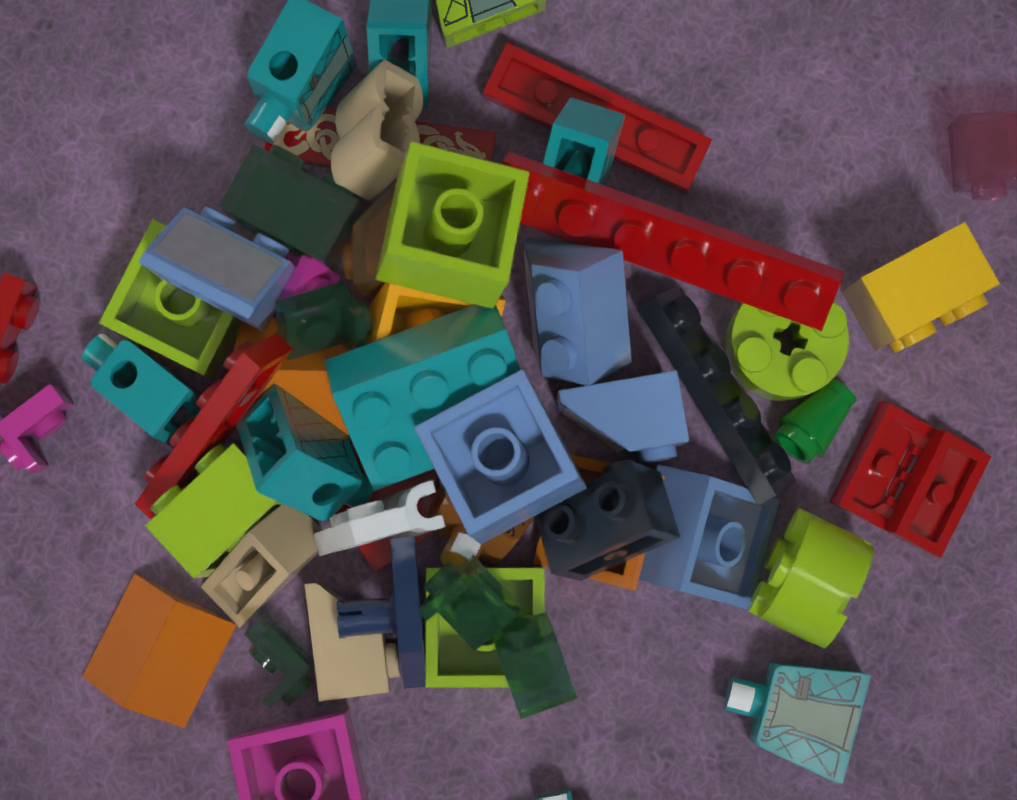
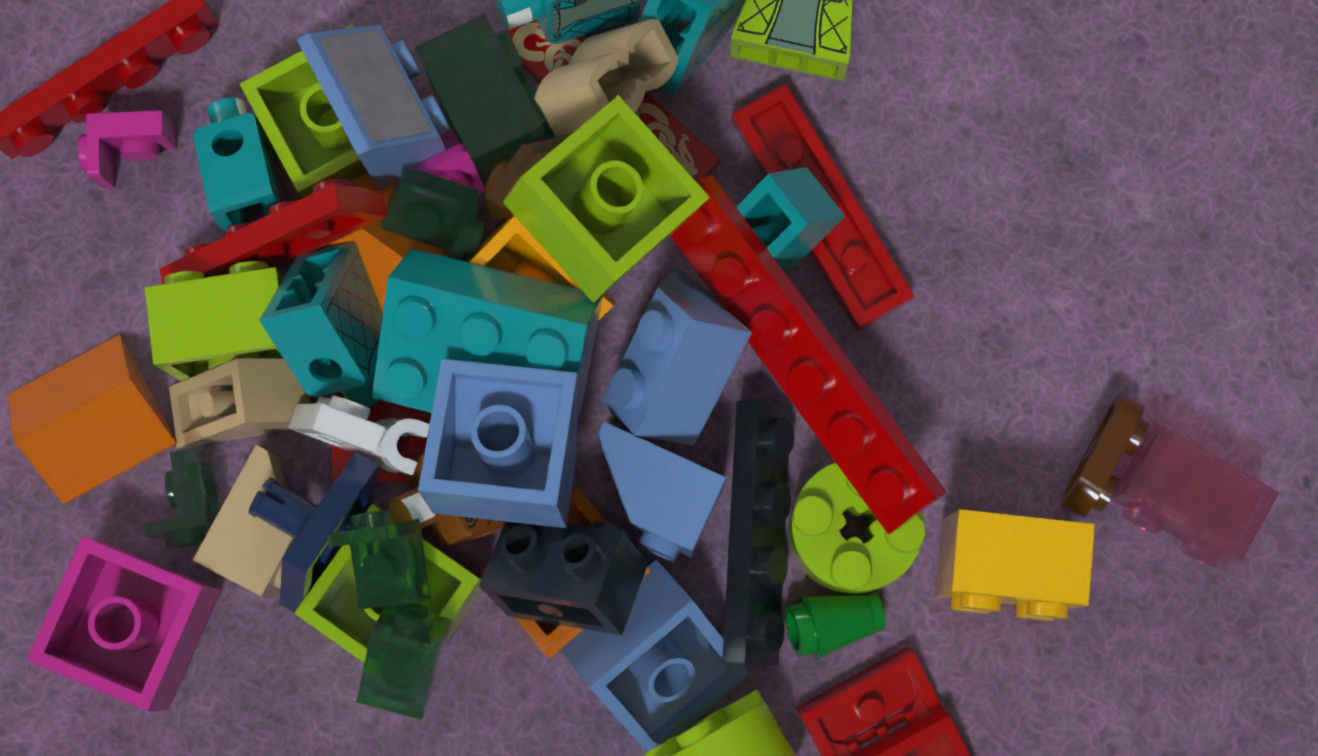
camera: 40 degrees right, 5 degrees down
(933, 187) = (1117, 434): none -> reddish brown plate

